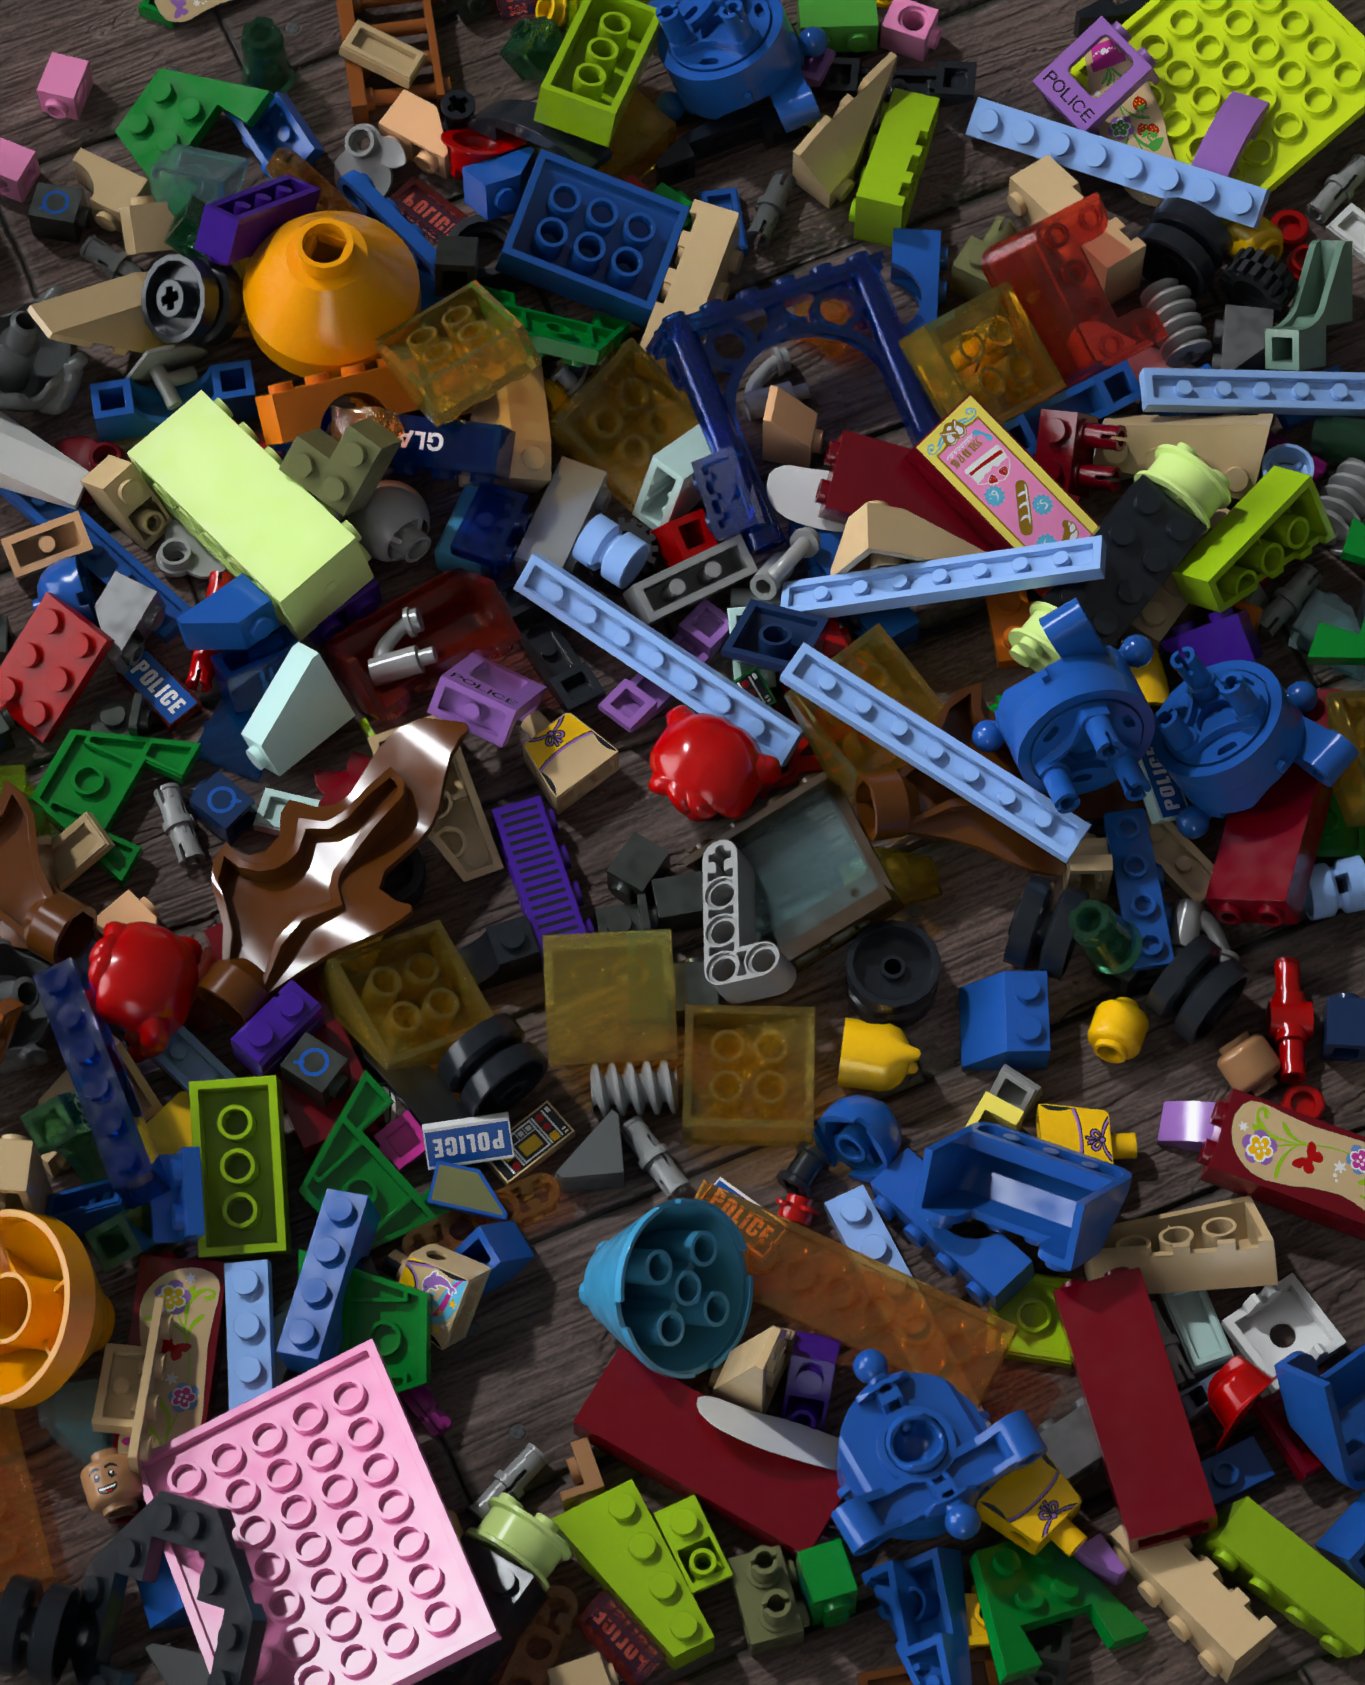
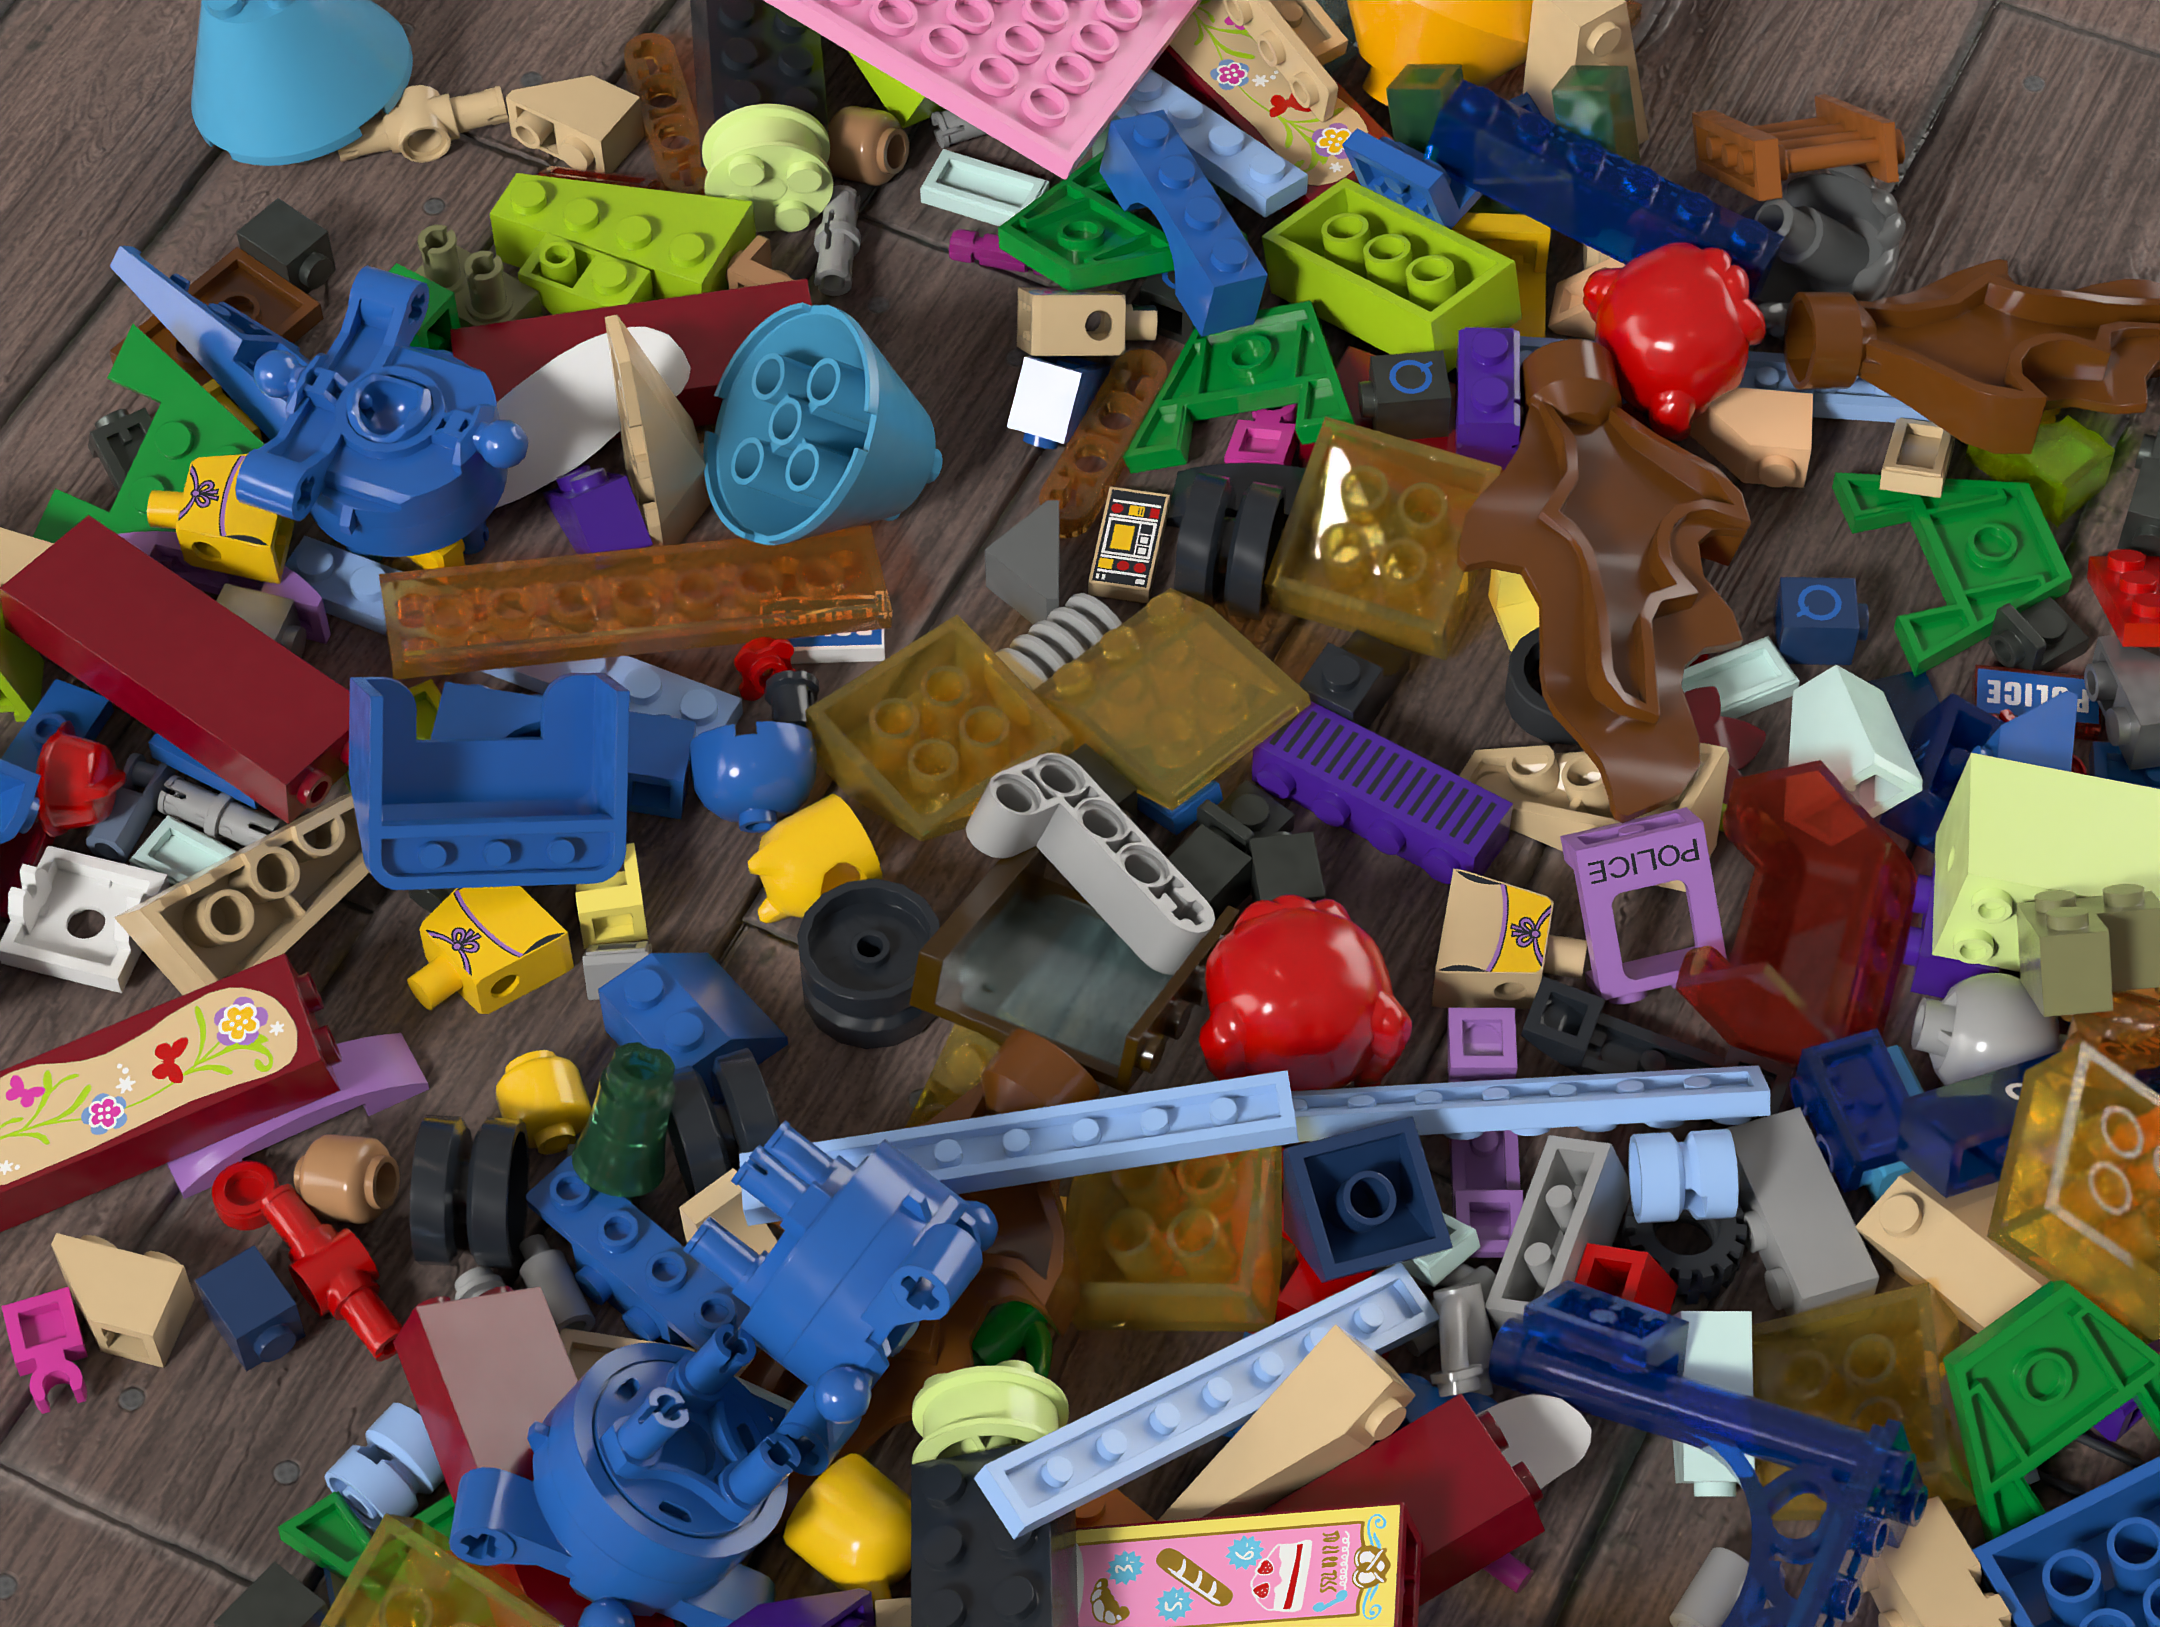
camera: 140 degrees right, 10 degrees down
(179, 825) = (1880, 593): light grey pin -> none
(403, 663) = (1794, 885): light grey plant -> none
(464, 1191) = (1140, 427): olive tile -> none
(468, 1140) = (1171, 484): tile -> none
(654, 1157) = (935, 608): light grey pin -> none
(789, 430) = (1637, 1544): light nougat slope -> none

